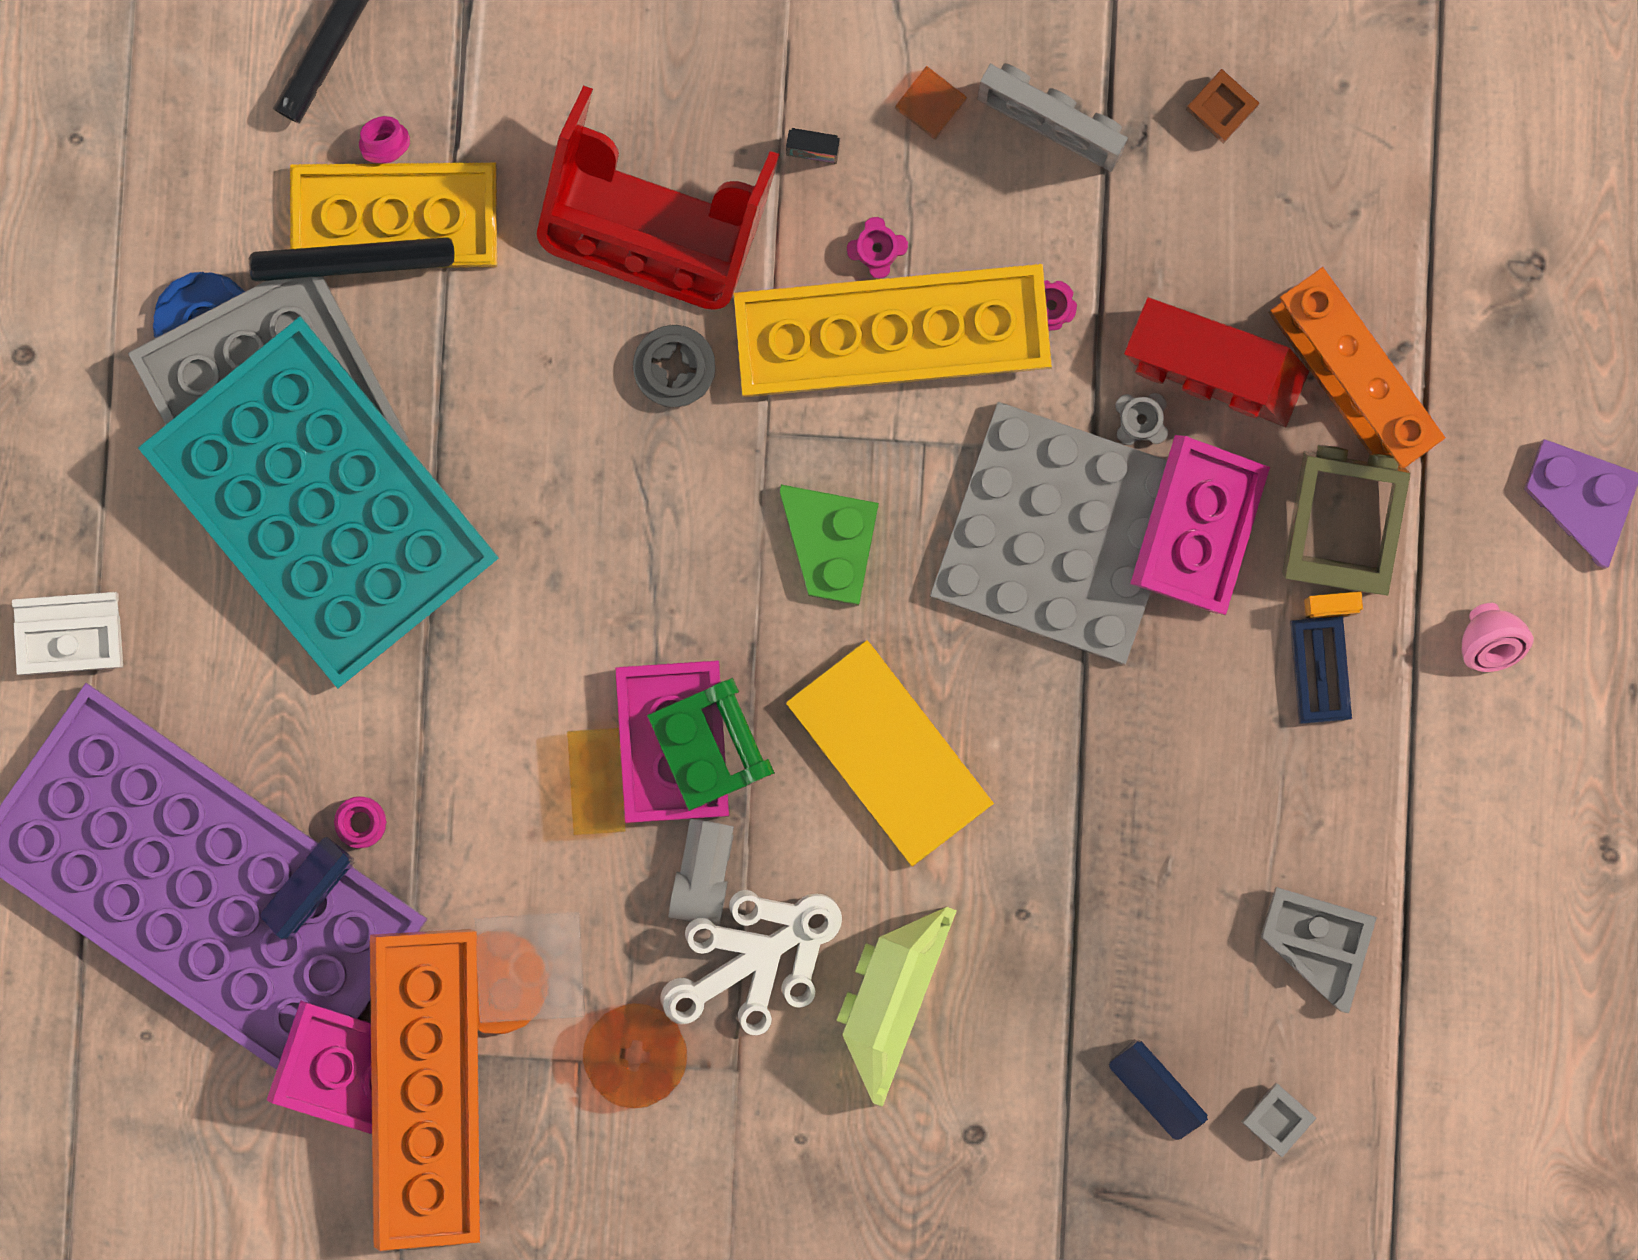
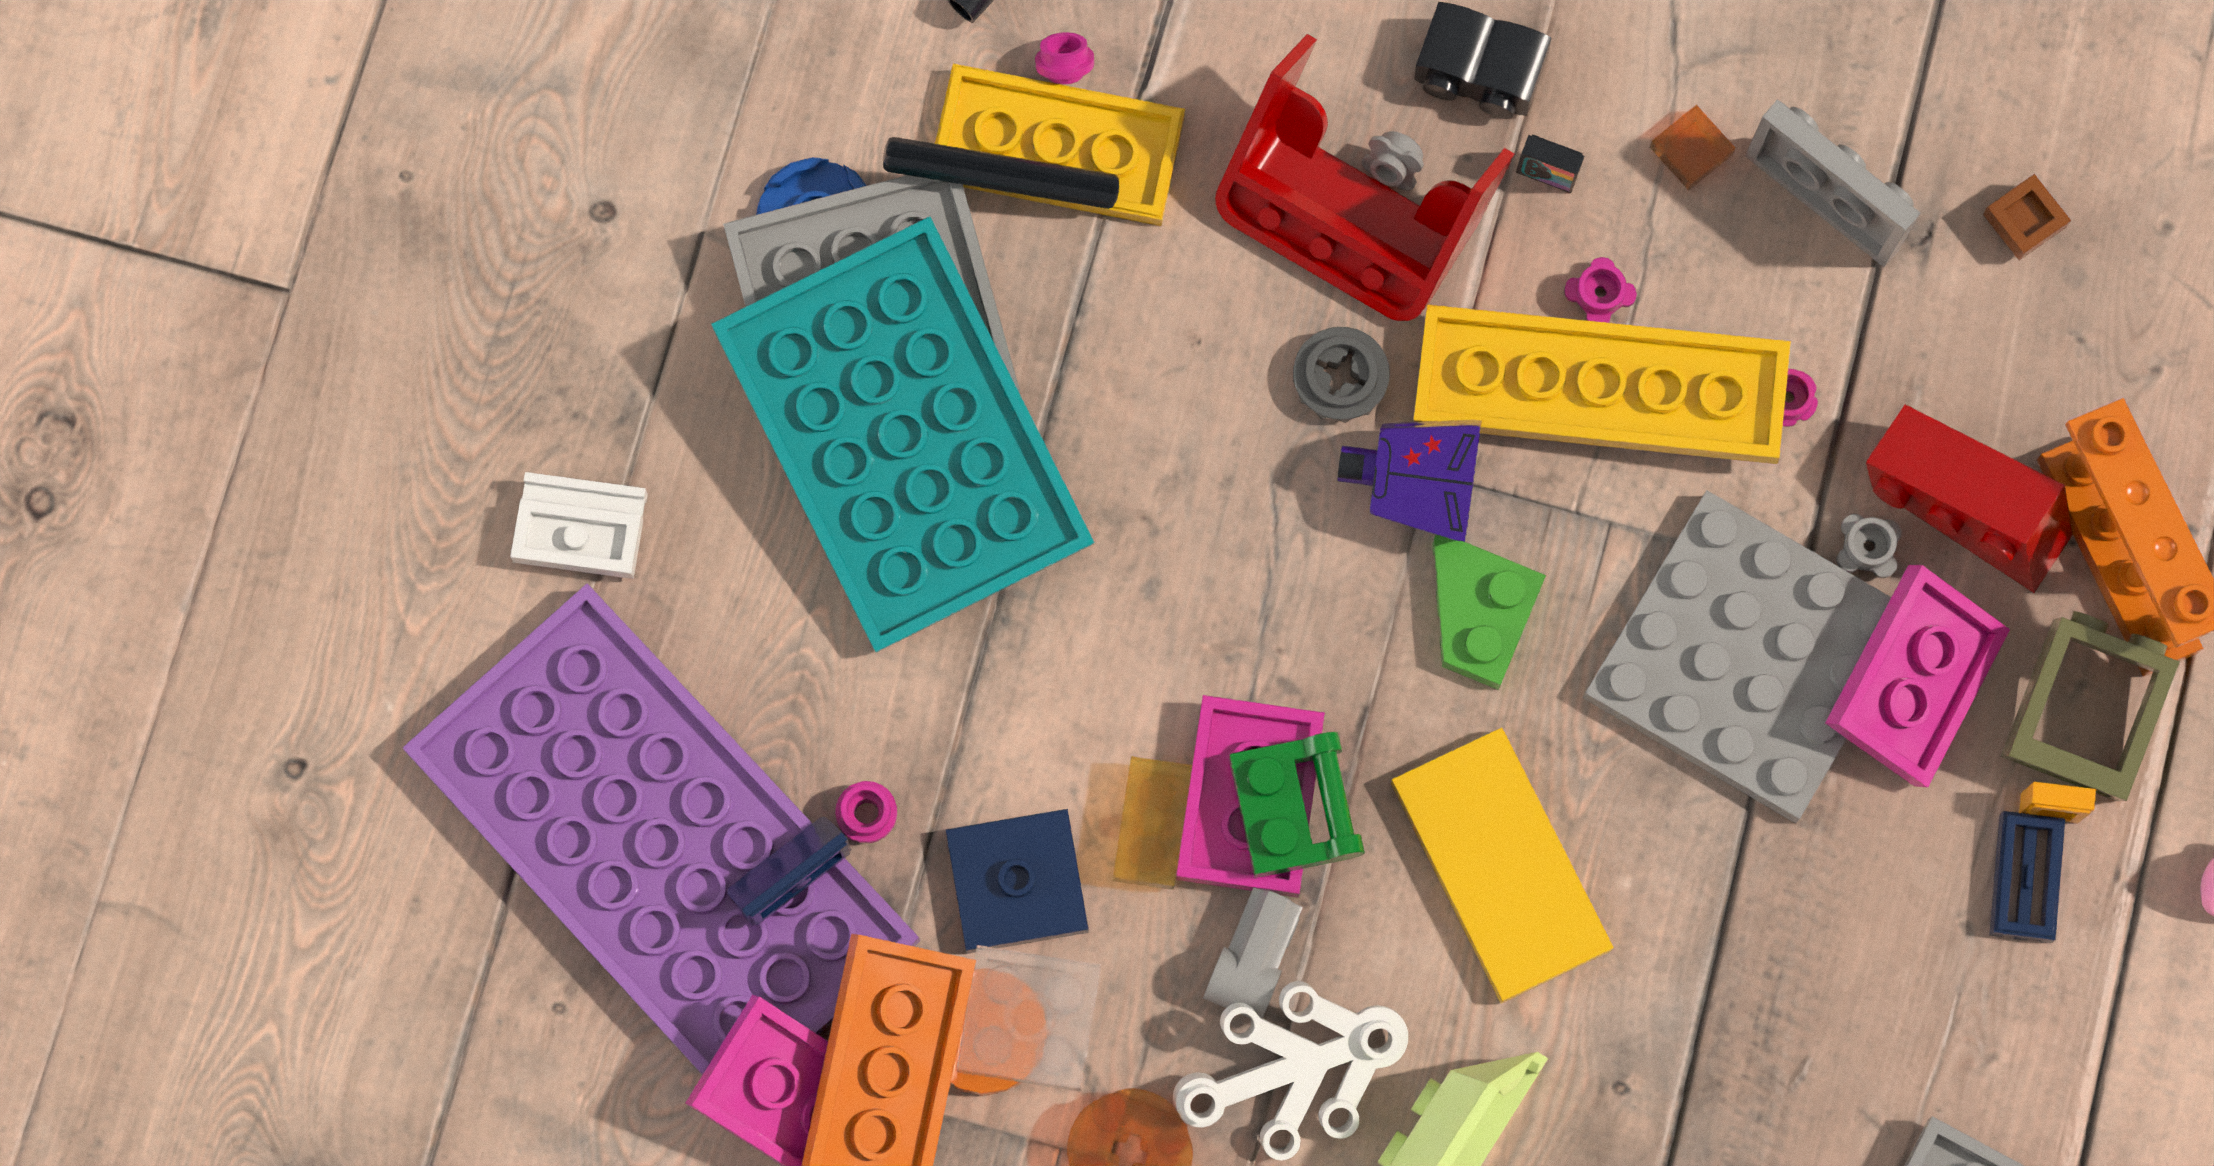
camera: 10 degrees right, 10 degrees down
(496, 852) = (1017, 880): none -> dark blue plate
(681, 170) = (1394, 160): none -> light grey plate
(737, 67) = (1481, 60): none -> black brick
(756, 442) = (1419, 474): none -> dark purple torso

